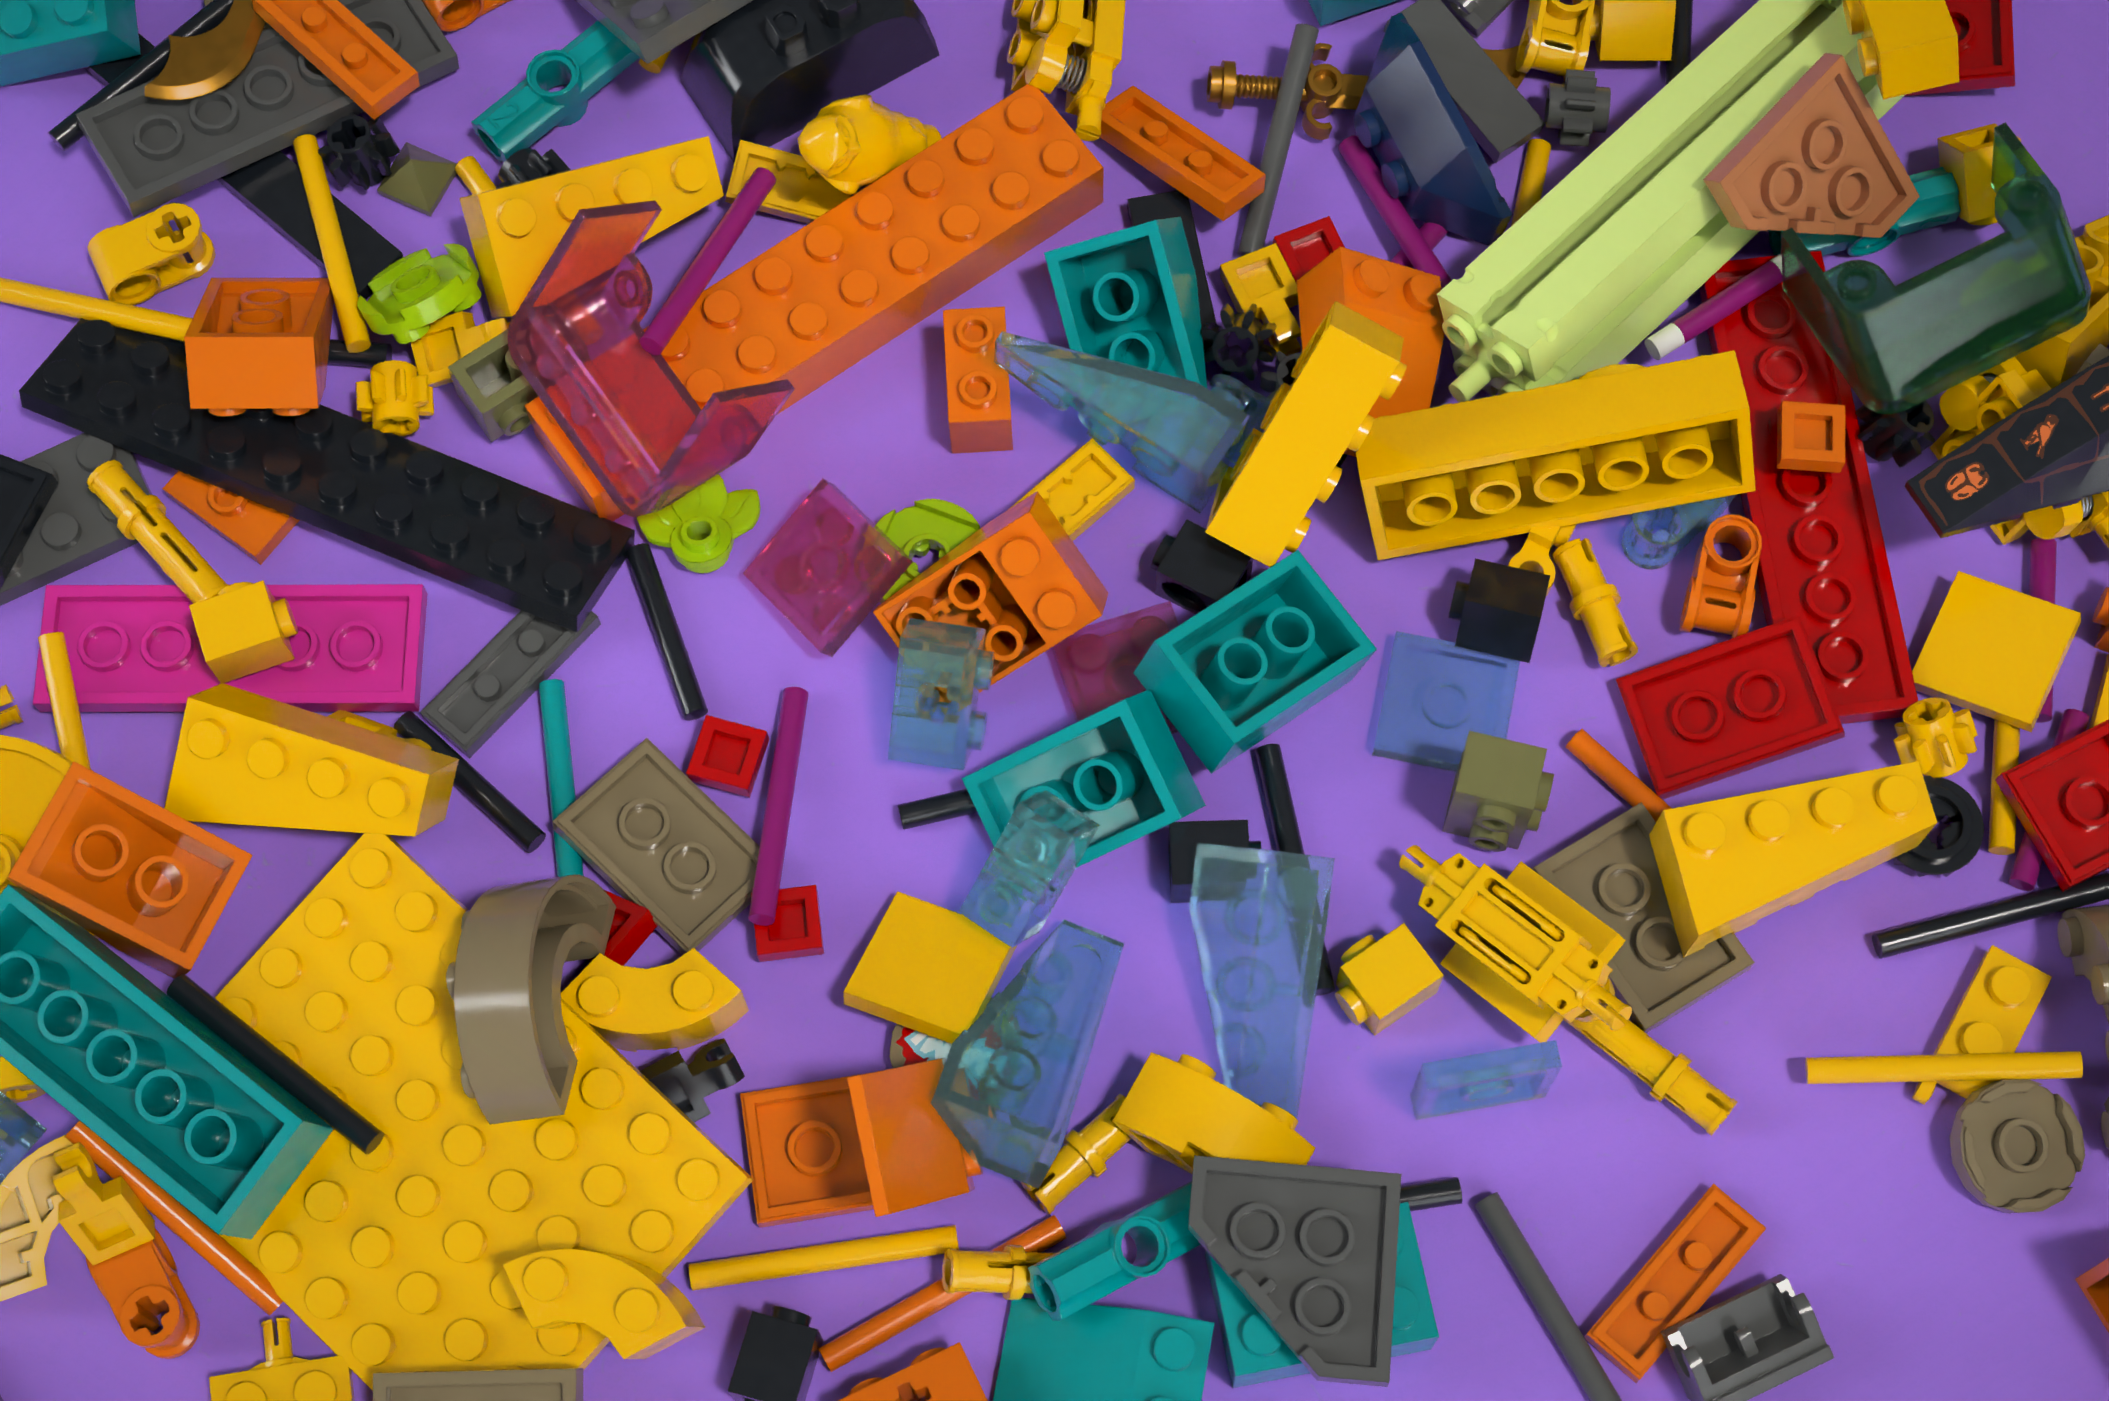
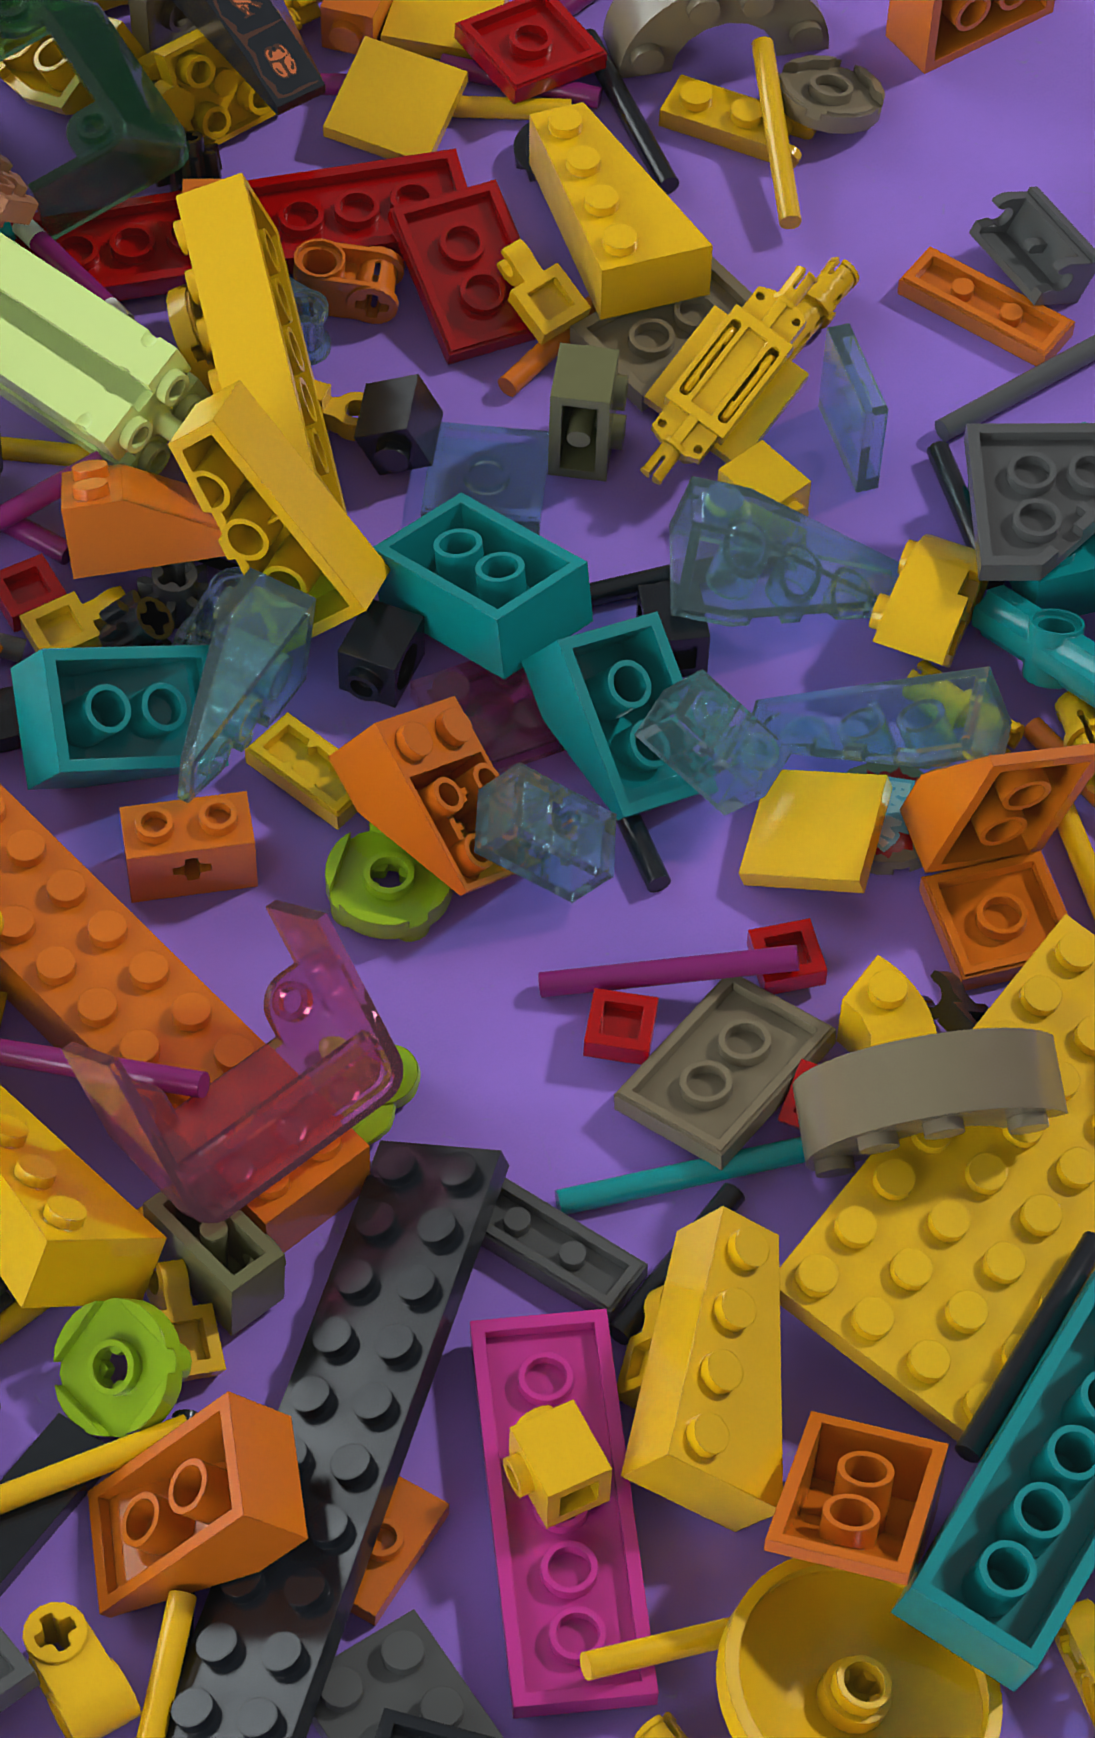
camera: 100 degrees left, 15 degrees down
(144, 519) = (431, 1598): yellow pin -> none
(394, 397) = (251, 1373): yellow gear -> none
(666, 632) = (490, 1103): black bar -> none
(827, 567) = (417, 947): clear pink plate -> none
(1595, 602) = (392, 362): yellow pin -> none
(1670, 773) = (541, 297): none -> yellow plate
(1935, 737) = (483, 137): yellow gear -> none

